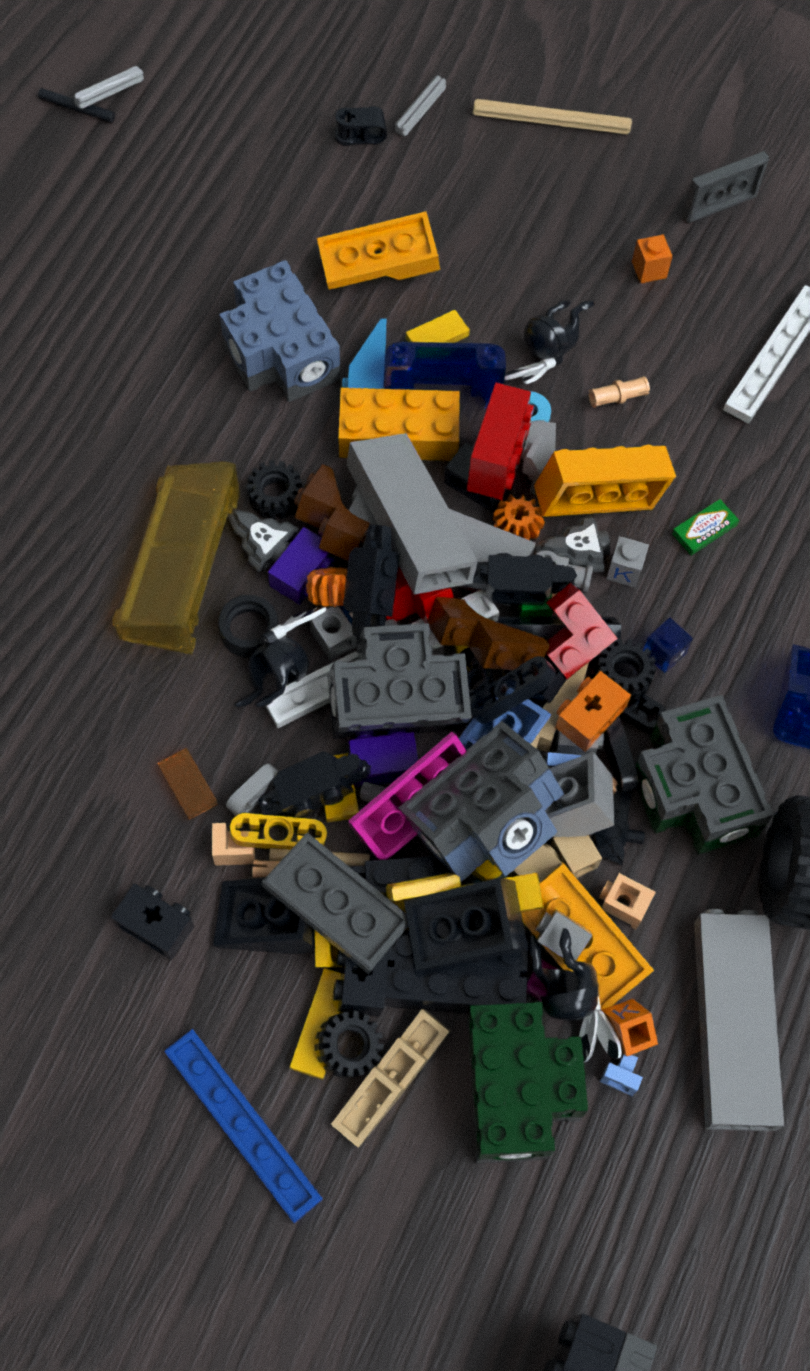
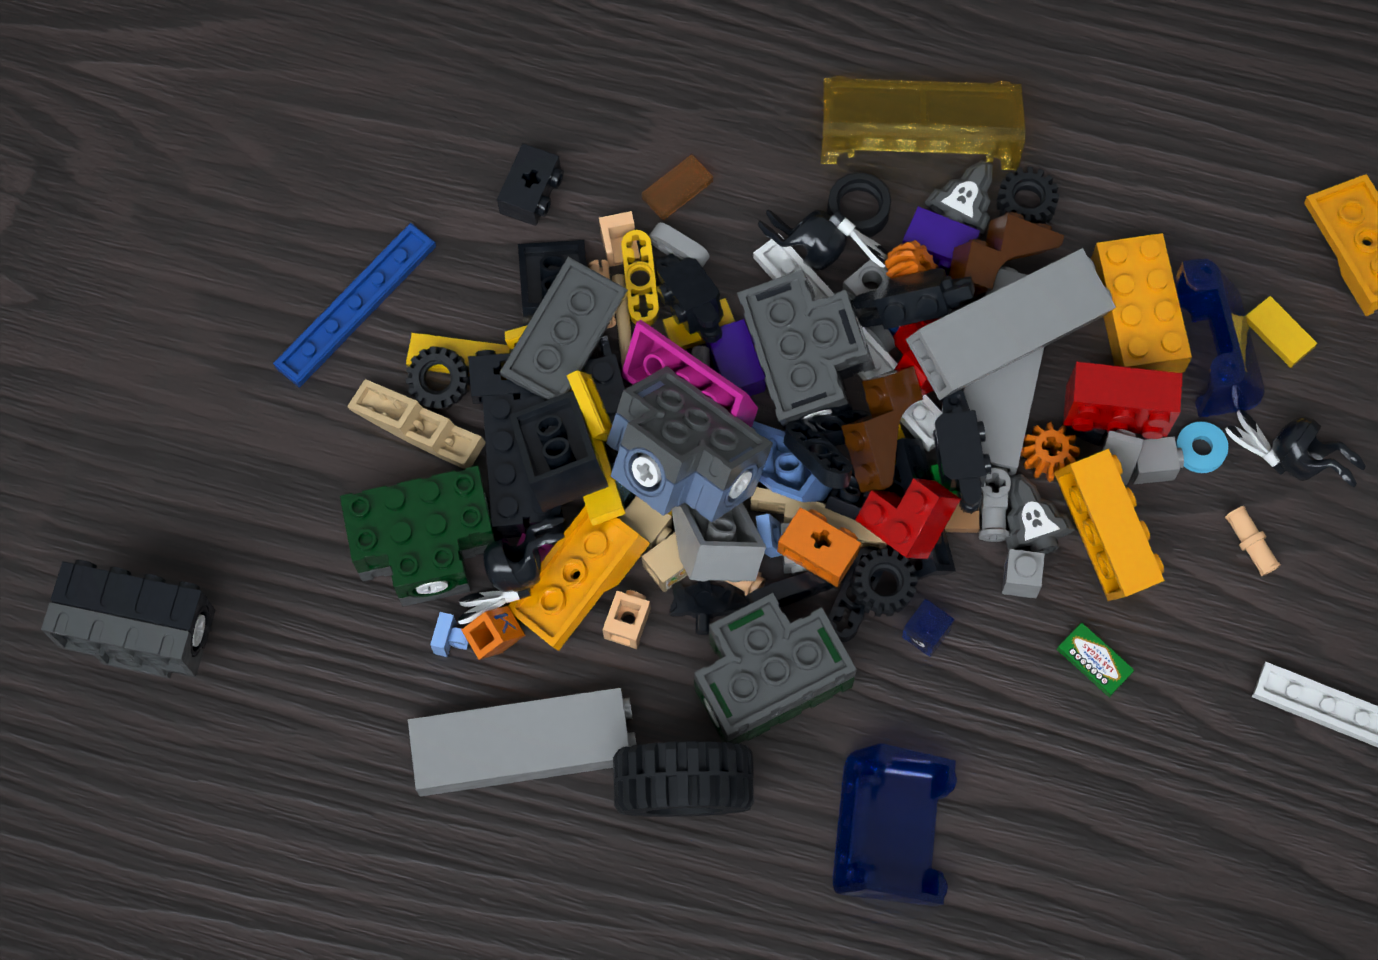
camera: 85 degrees right, 5 degrees up
(279, 335) = (1219, 158): sand blue piece -> none
(368, 366) = (1235, 264): dark azure slope -> none
(550, 932) = (569, 553): light grey brick -> none

